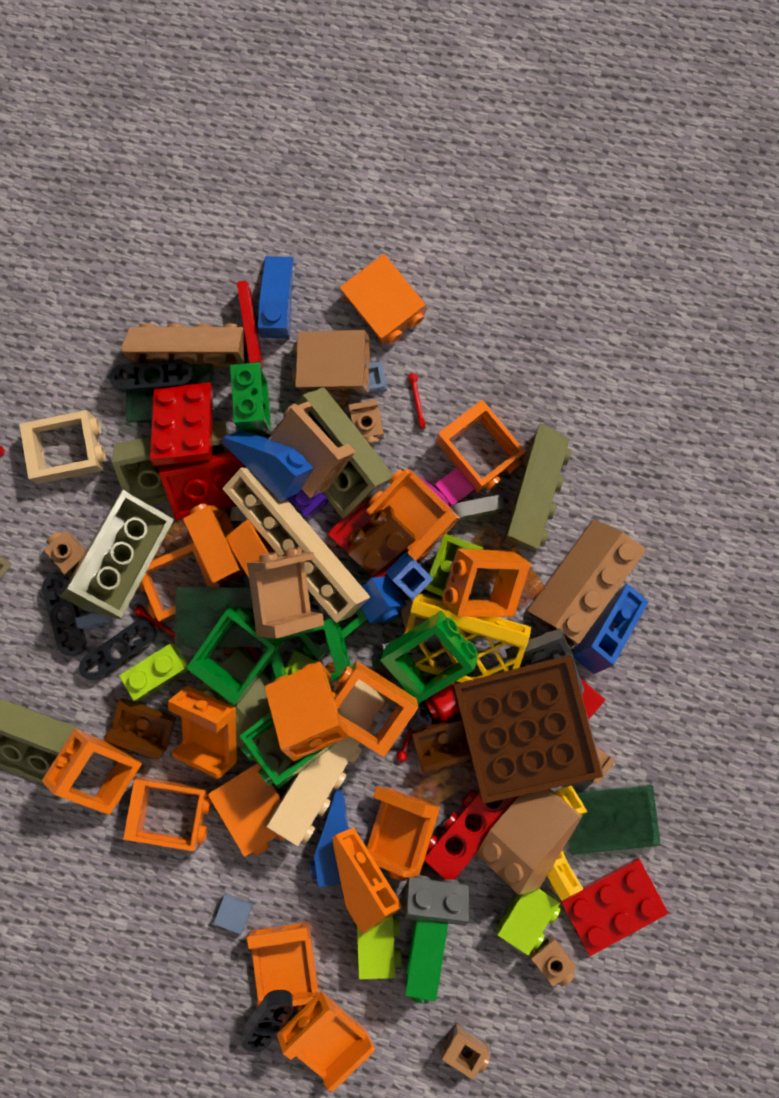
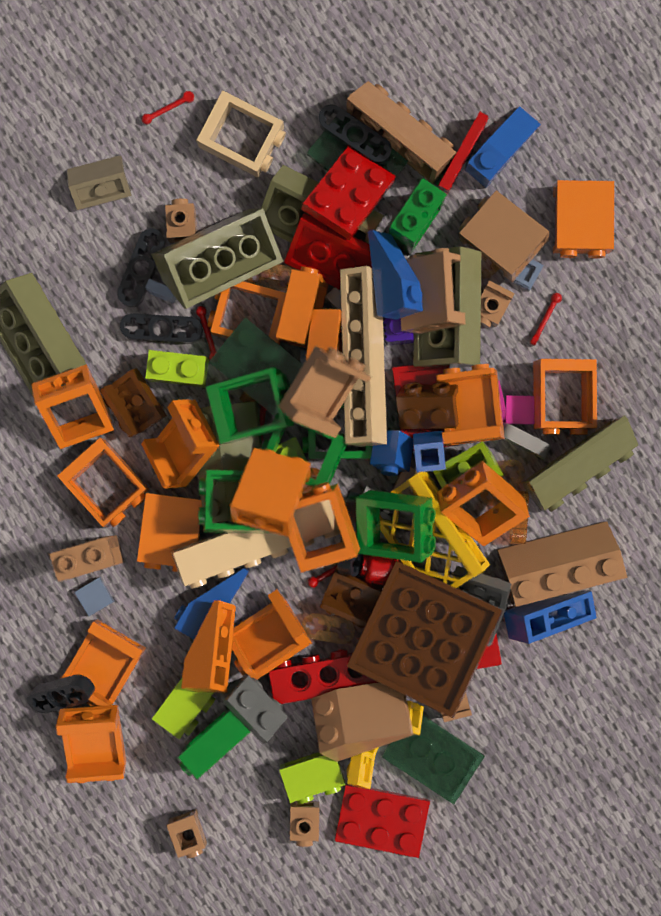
camera: 30 degrees right, 5 degrees up
(199, 888) = (87, 558): none -> medium nougat panel

